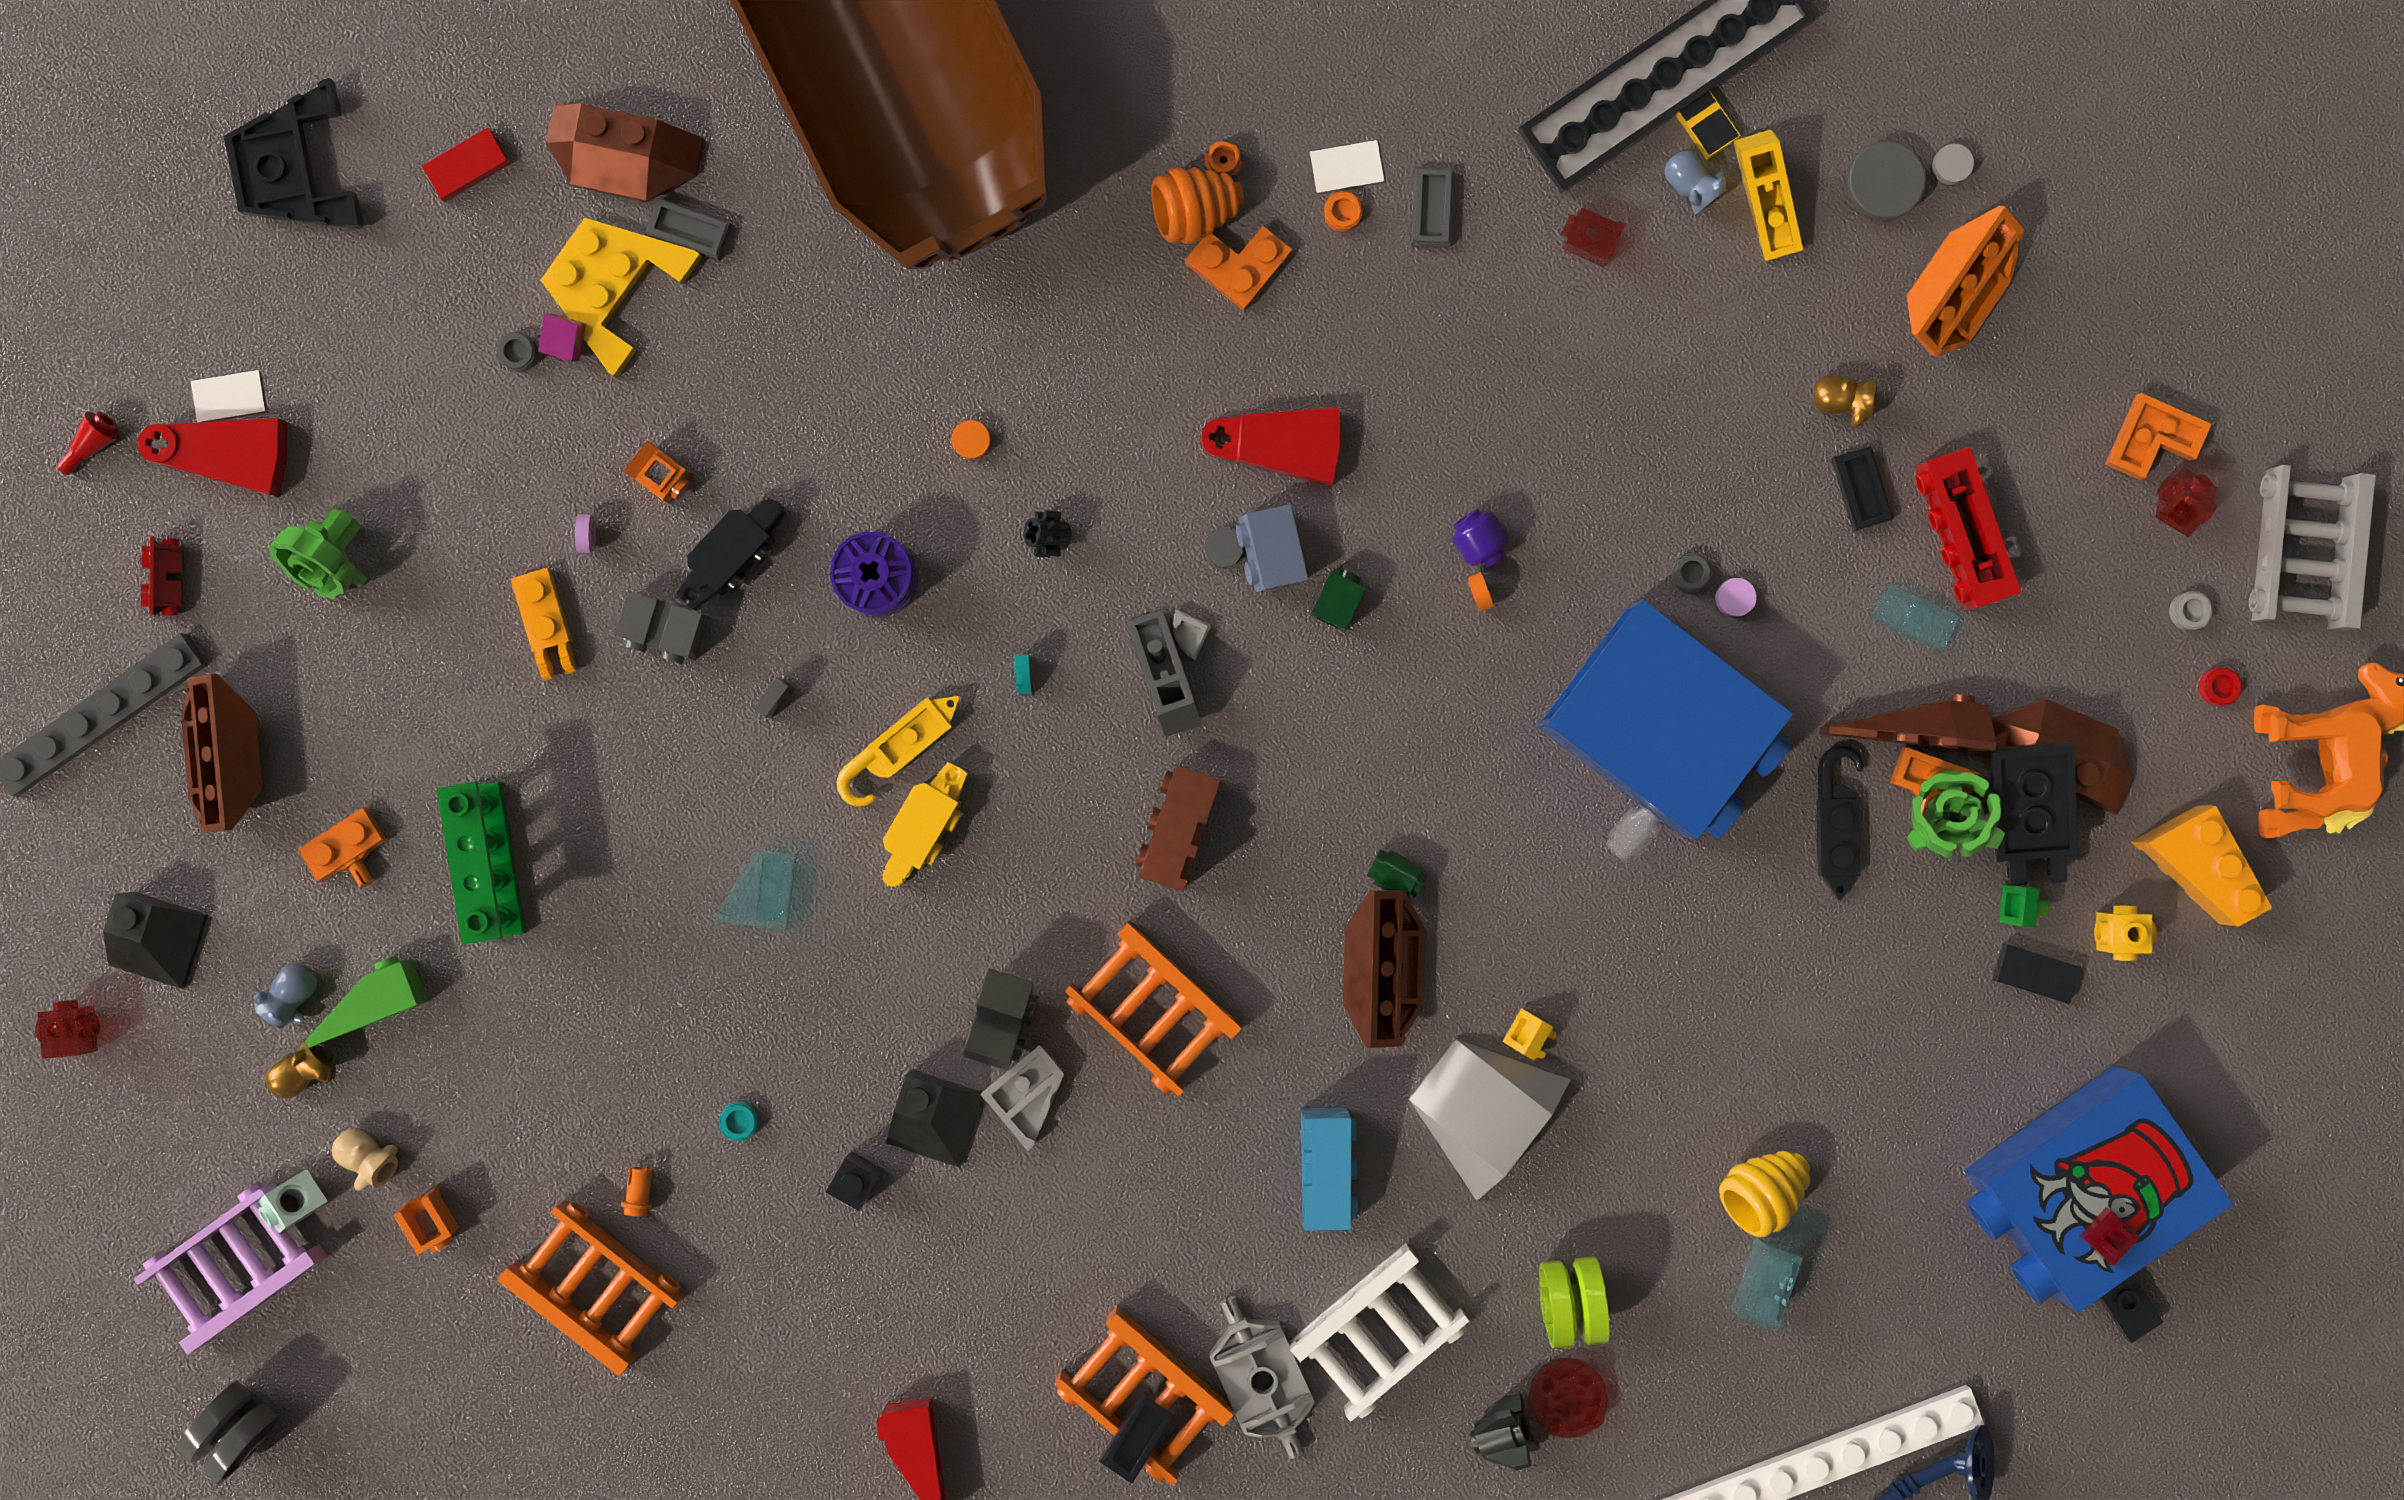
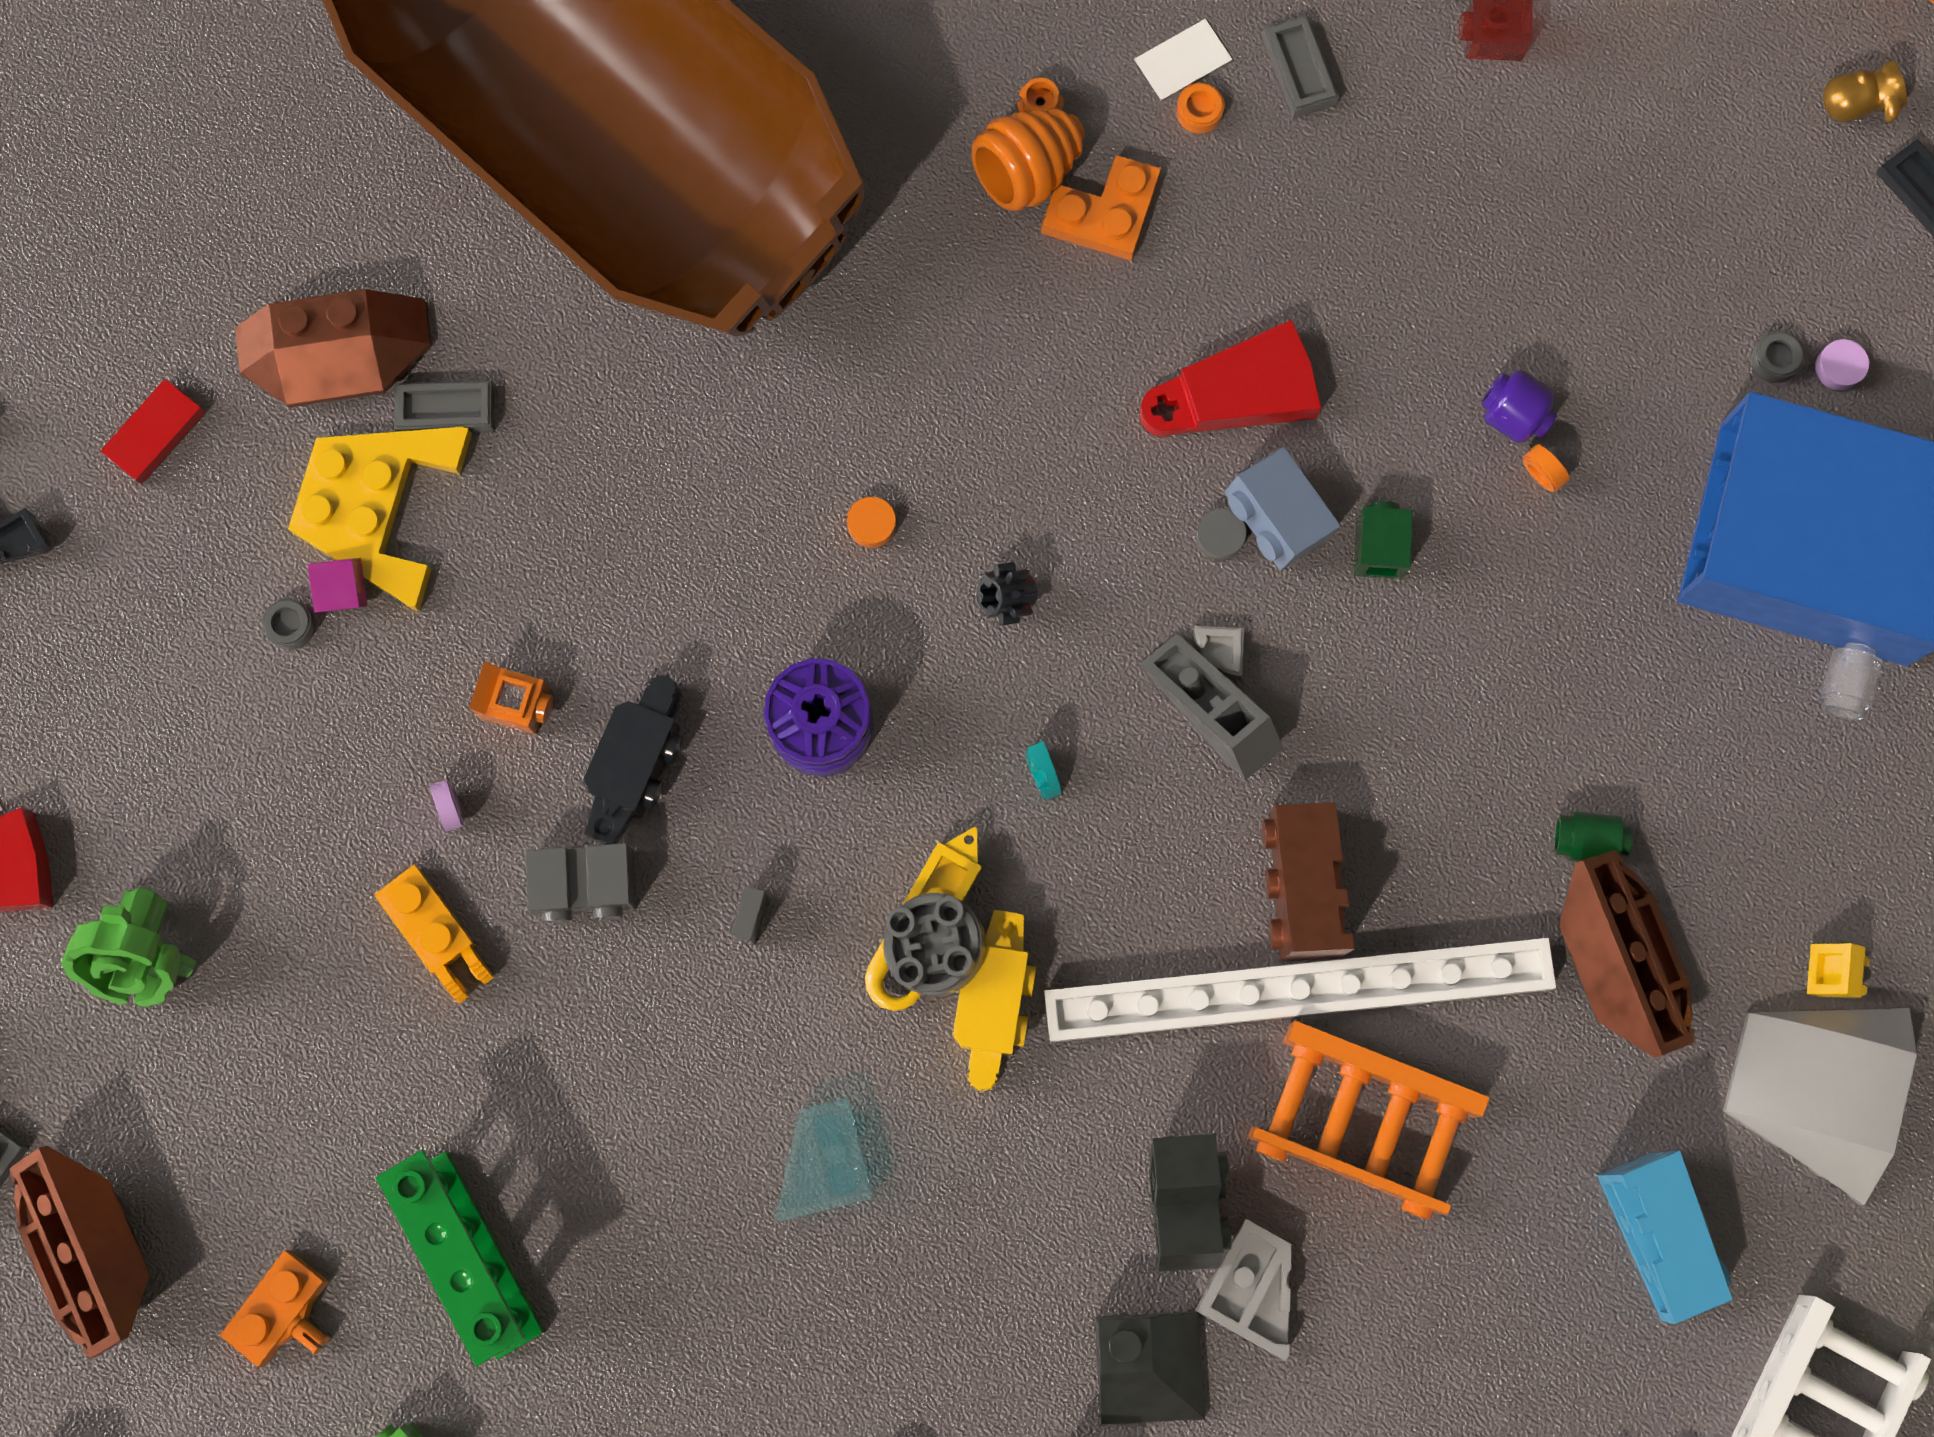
camera: 15 degrees left, 10 degrees down
(893, 771) = (934, 944): none -> dark grey tile
(1142, 901) = (1299, 990): none -> white plate

